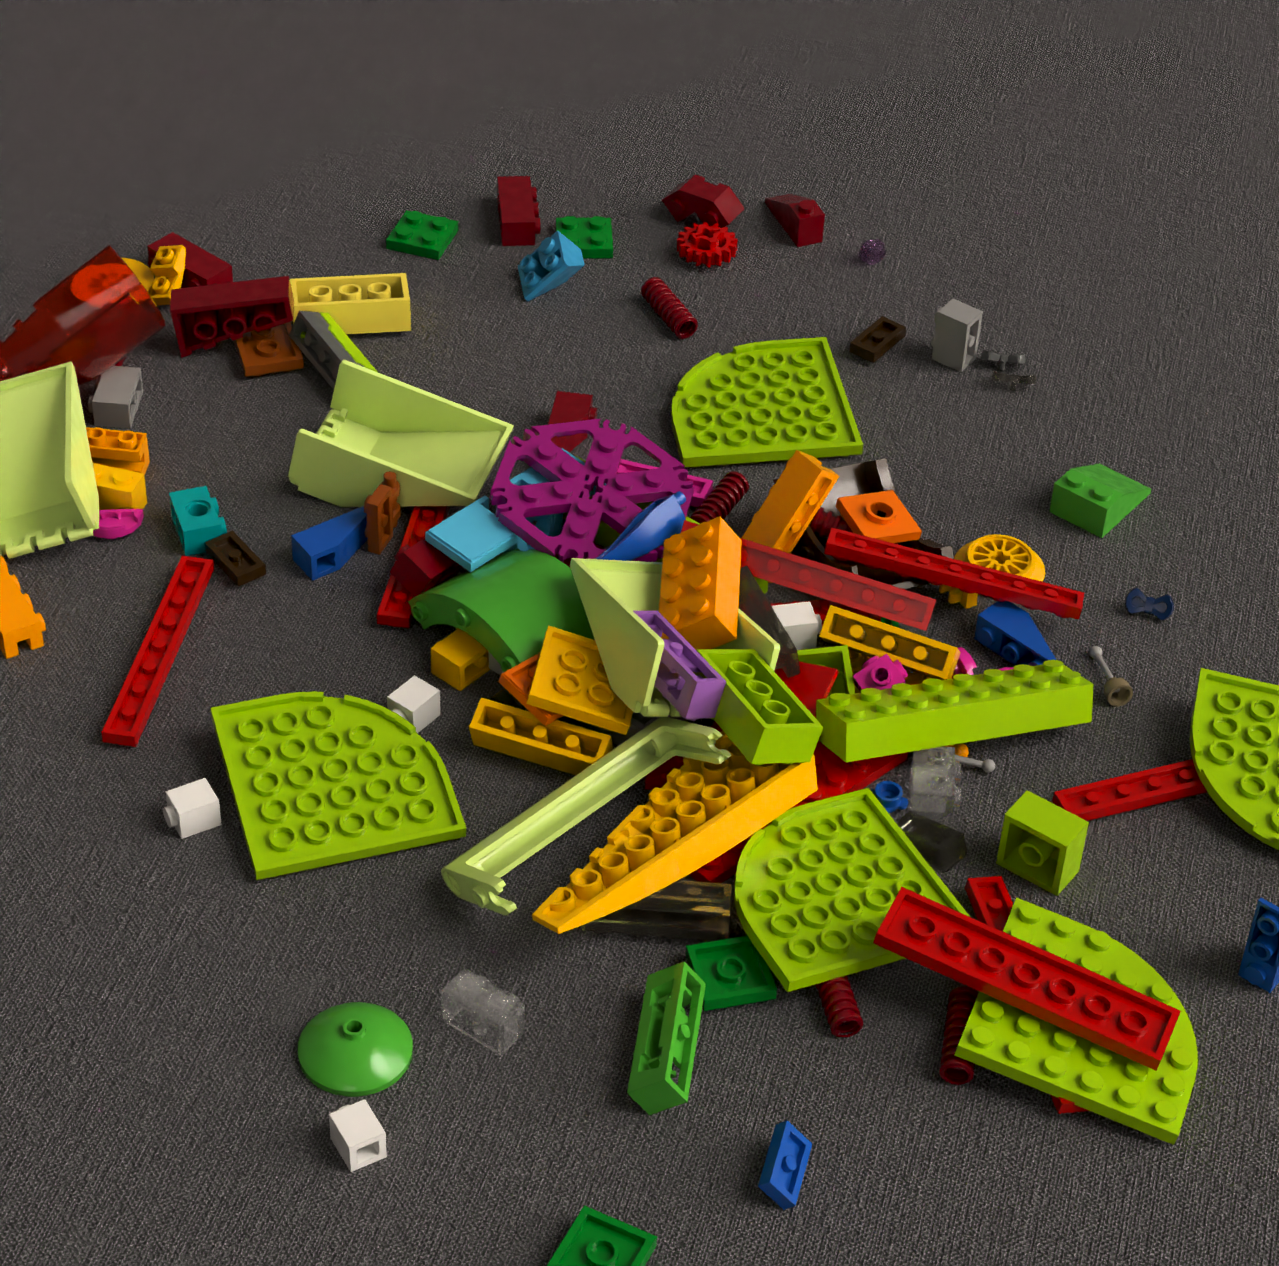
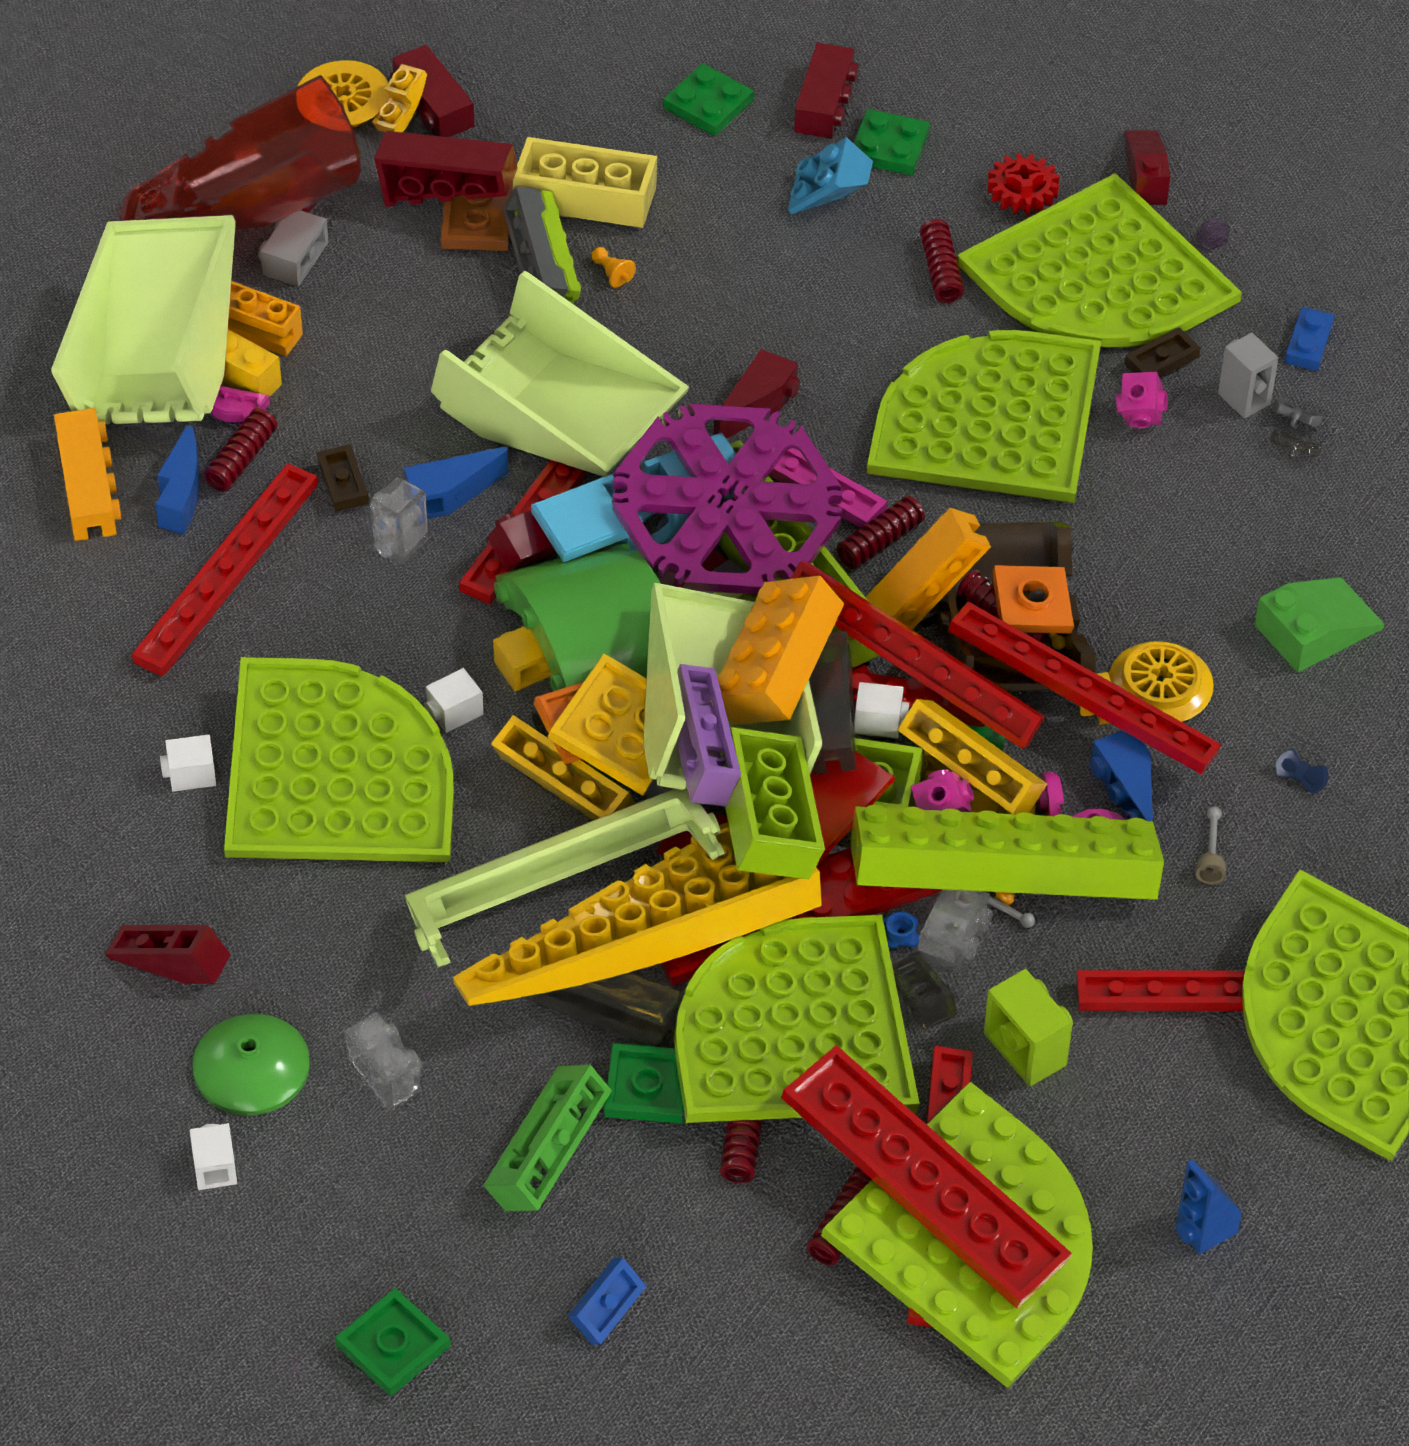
camera: 20 degrees right, 10 degrees up
(89, 592) = (179, 485): none -> blue slope
(134, 555) = (240, 449): none -> dark red piece
(195, 518) = (319, 420): teal brick -> none
(241, 968) = (173, 951): none -> dark red slope
(304, 575) = (399, 520): none -> clear brick
(382, 513) = (509, 461): dark orange plate -> none
(404, 363) = (618, 270): none -> light orange piece
(648, 529) = (760, 562): blue piece -> none
(708, 201) = (1049, 131): dark red brick -> none
(797, 290) = (1099, 270): none -> lime plate
(881, 369) = (1142, 399): none -> dark pink brick
(985, 299) = (1309, 338): none -> blue plate

